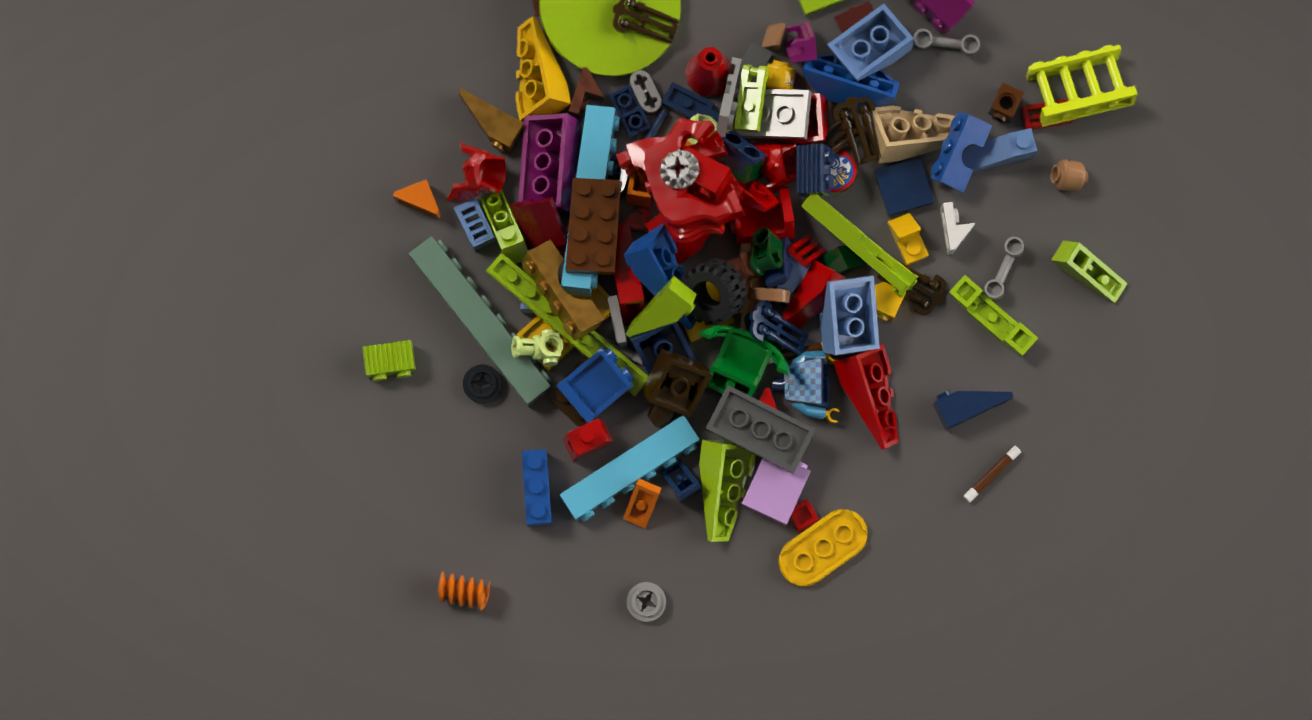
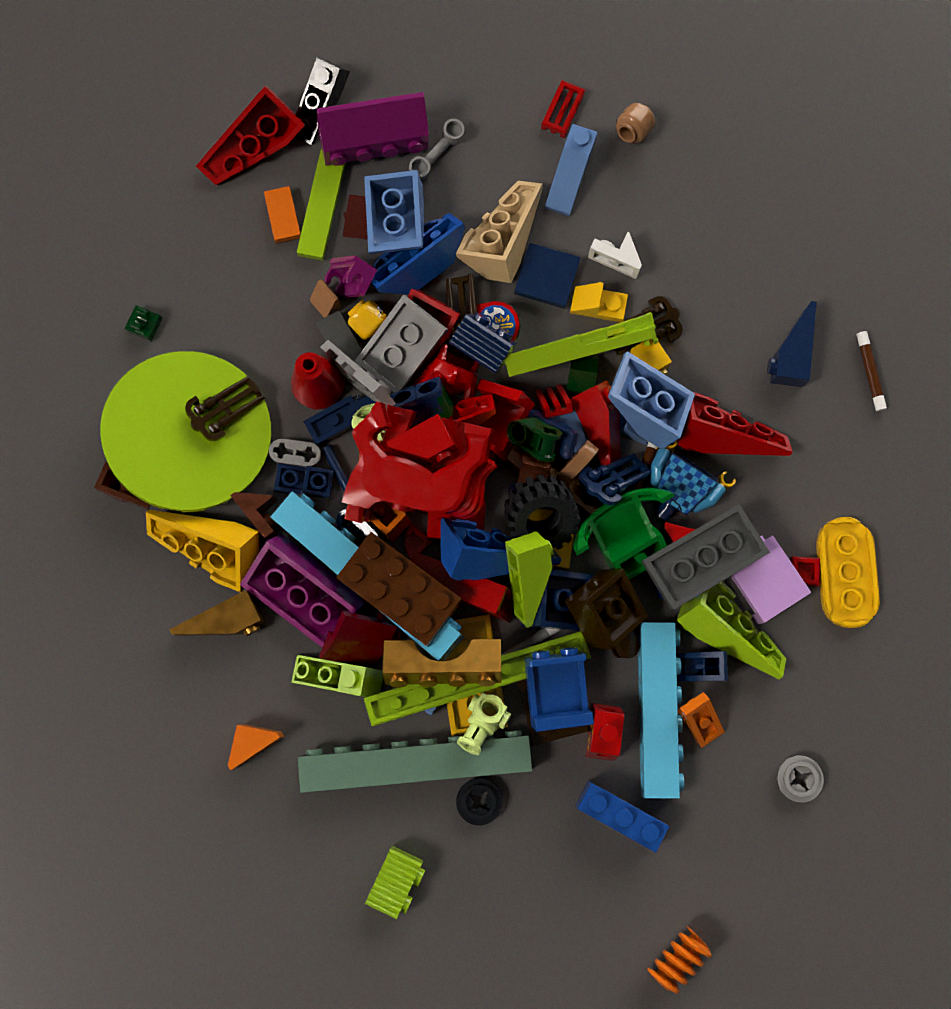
camera: 55 degrees left, 0 degrees up
(481, 172) = (268, 665): red helmet -> none
(483, 240) = (336, 706): medium blue slope -> none
(617, 321) = (506, 626): light grey tile -> none
(686, 176) = (418, 461): light grey gear -> none
(751, 98) = (373, 355): lime plate -> none
(851, 104) = (441, 267): dark brown piece -> none
(949, 167) = (559, 219): blue arch -> none
(992, 317) = (725, 275): lime slope -> none
(1008, 94) = (530, 124): reddish brown brick -> none
(1013, 249) = (670, 217): light grey bar -> none
(1076, 106) = (576, 74): neon yellow fence -> none
(1088, 270) = (733, 162): lime slope -> none

